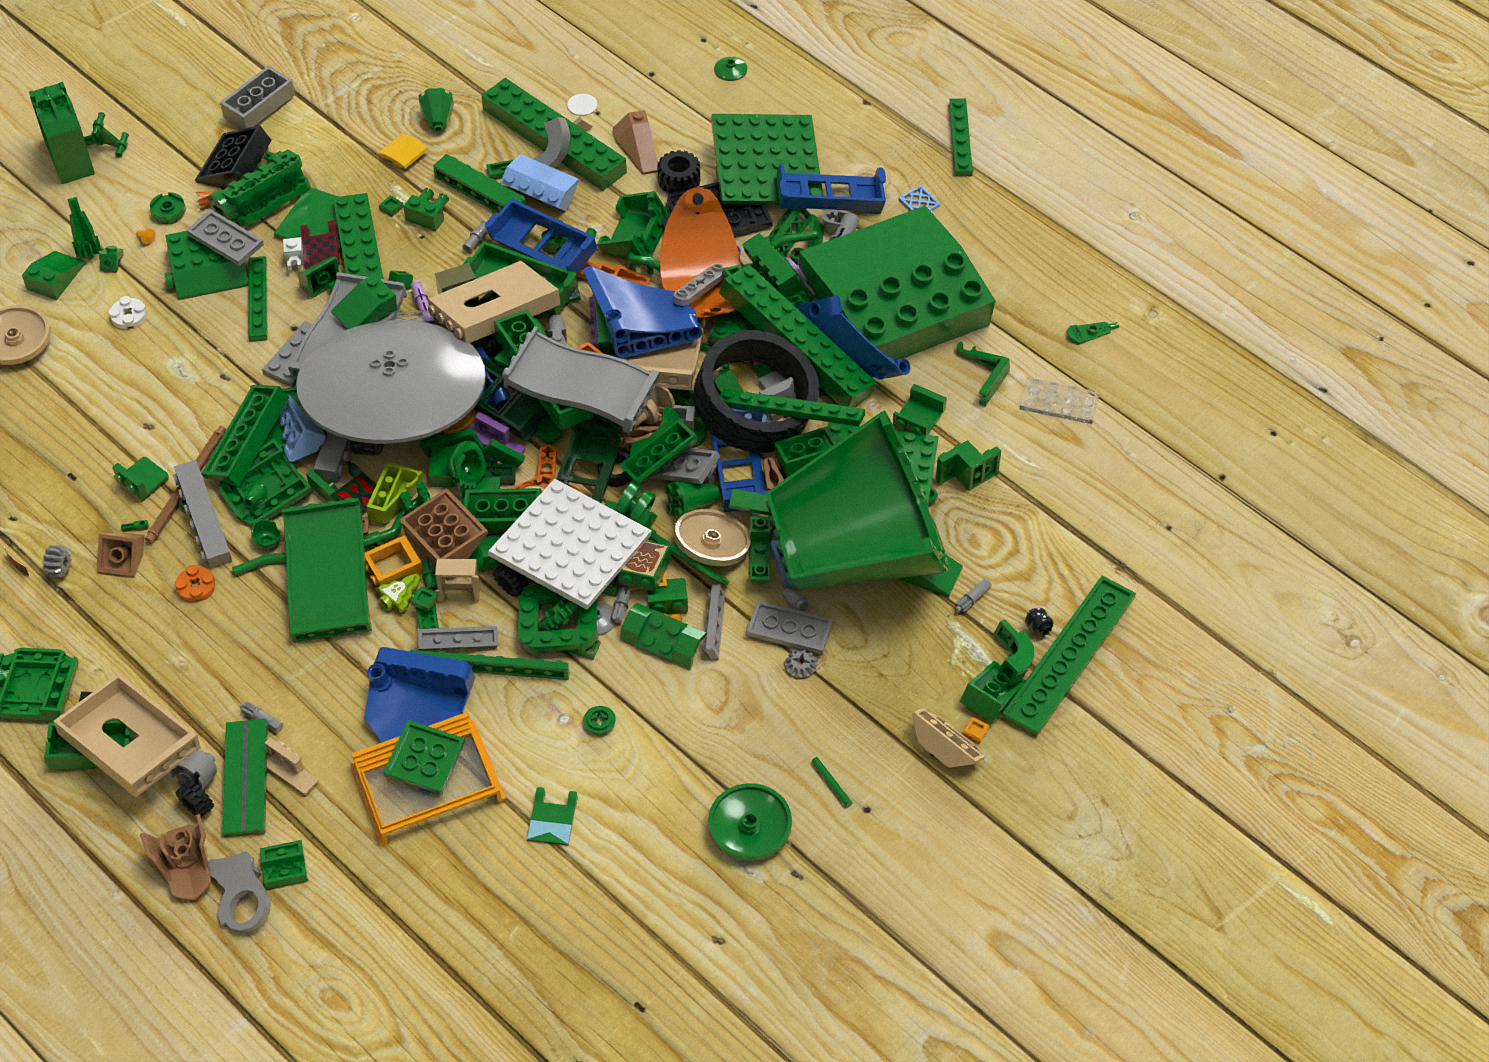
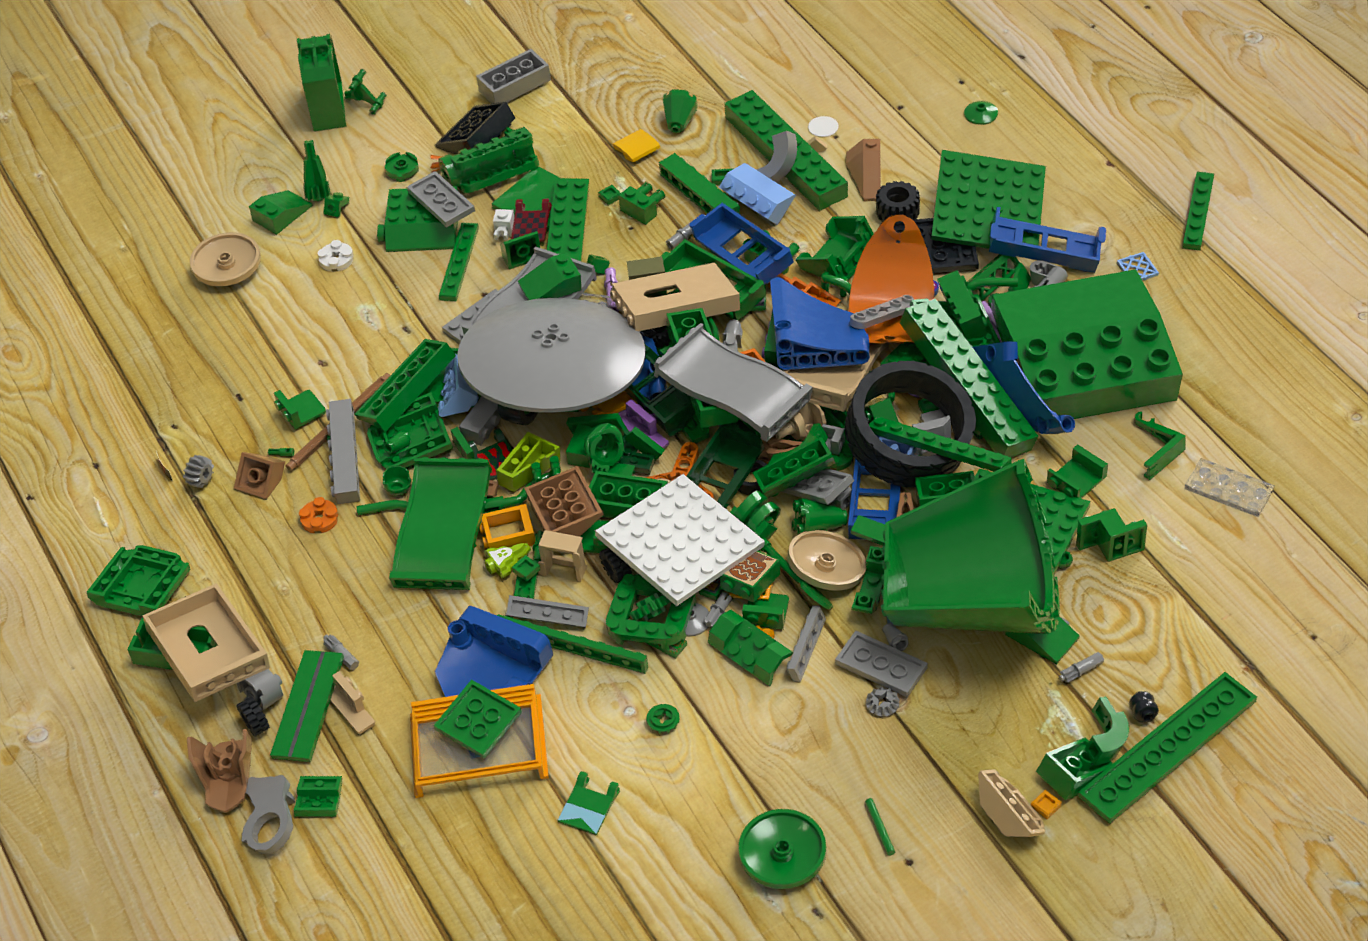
camera: 20 degrees right, 5 degrees down
(147, 236) = (374, 188): light orange rock -> none
(1082, 333) = (1275, 424): green piece -> none

